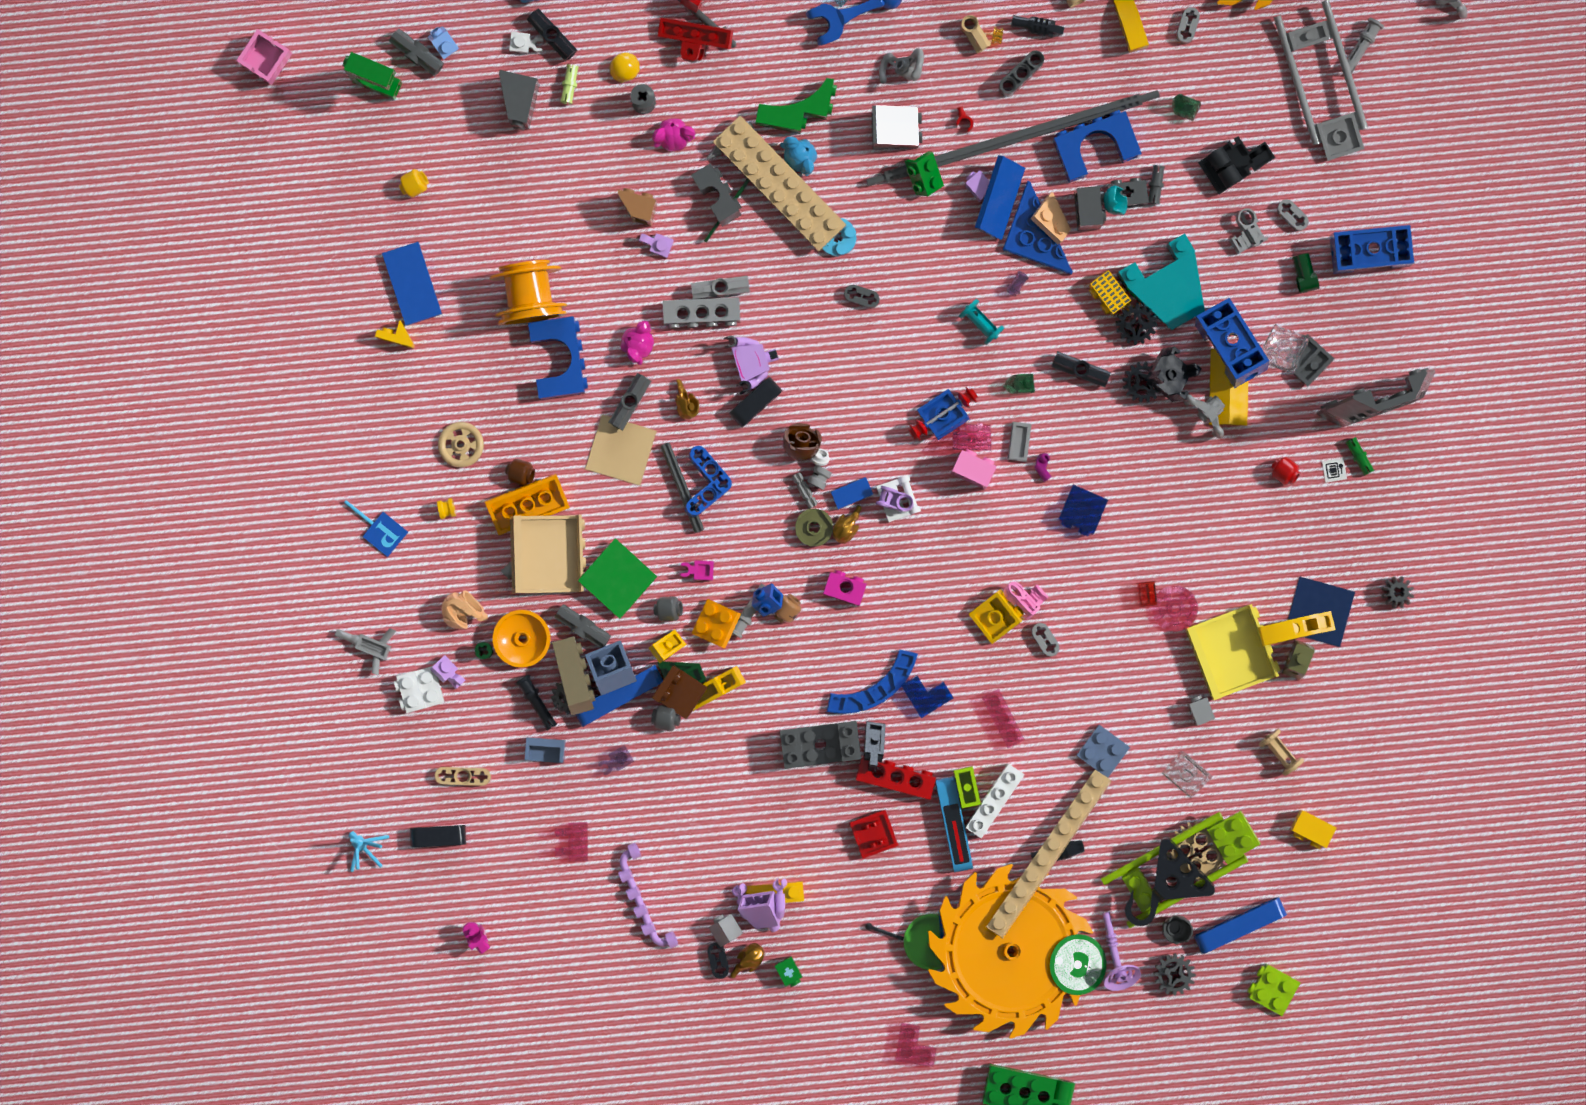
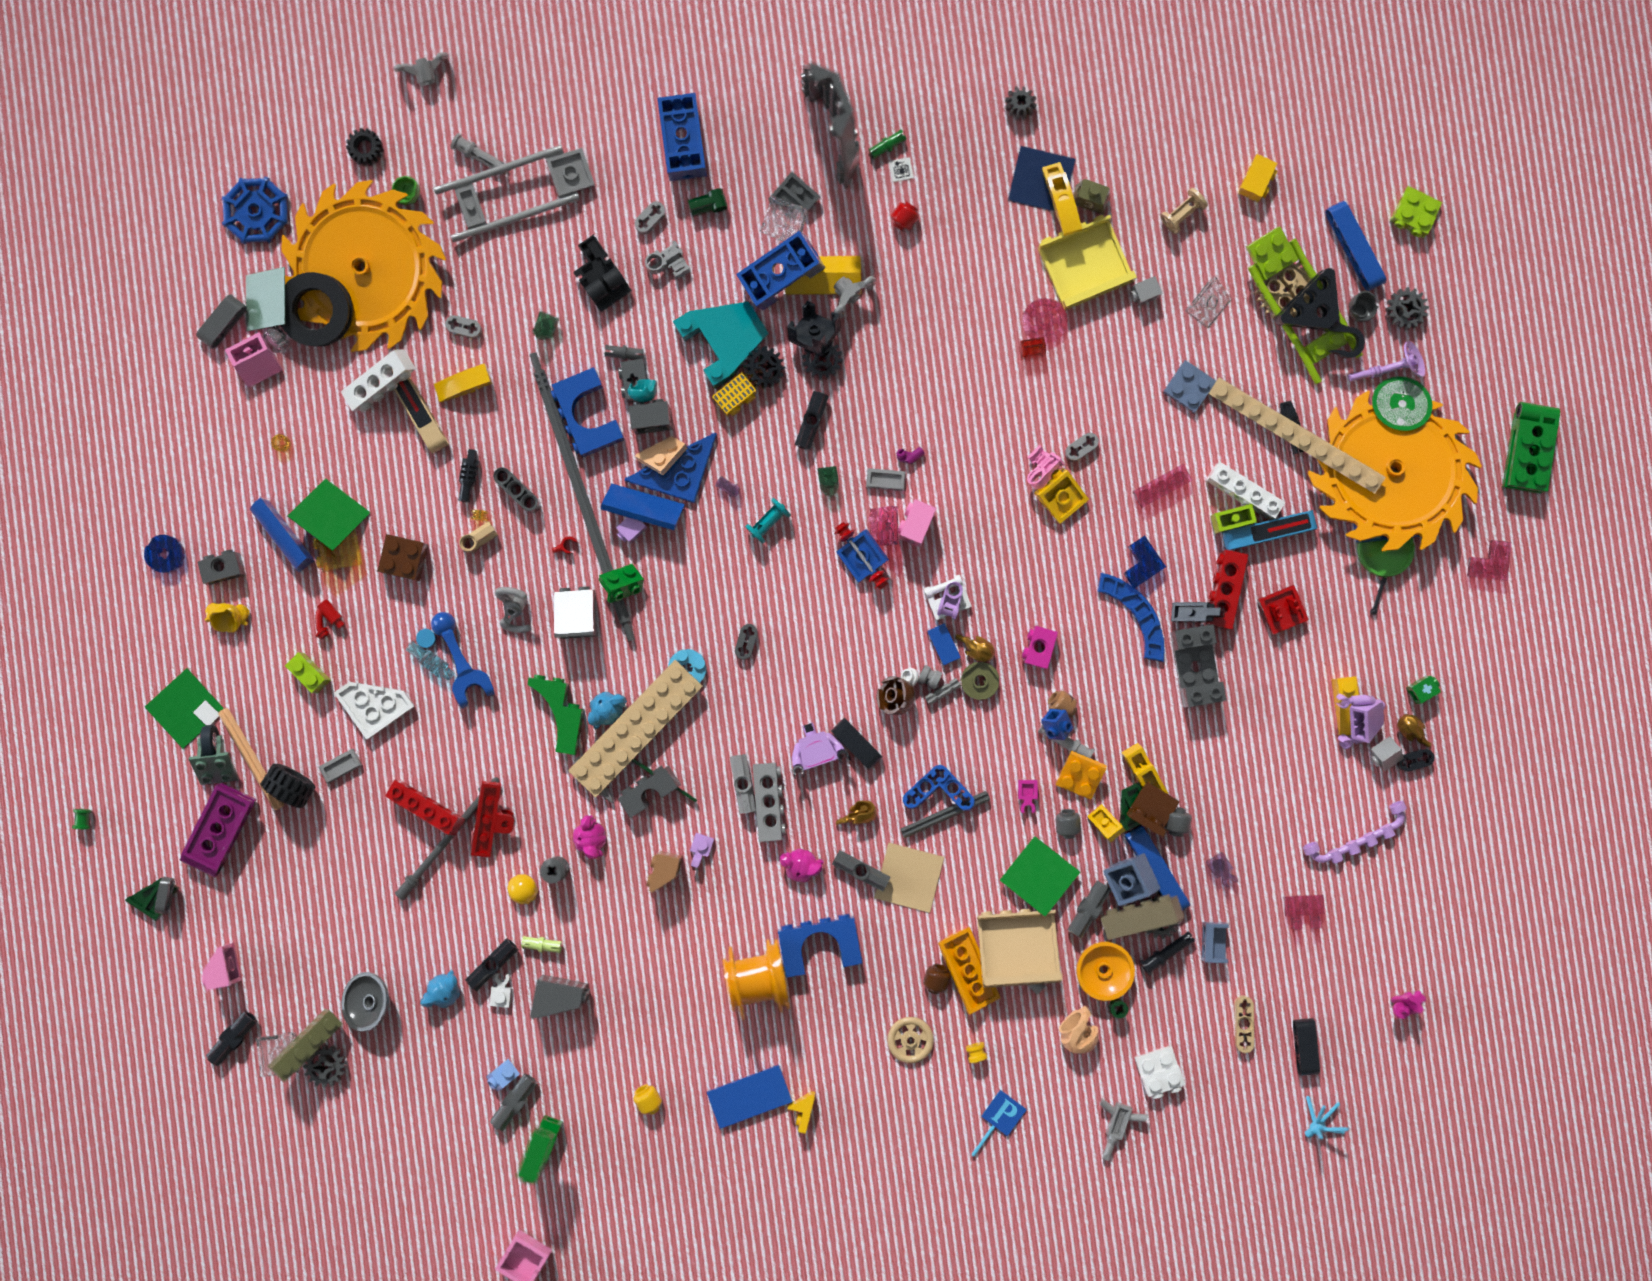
camera: 90 degrees left, 0 degrees up
(445, 670) = (1139, 1046): lavender plate -> none
(1082, 510) = (952, 414): clear blue plate -> none

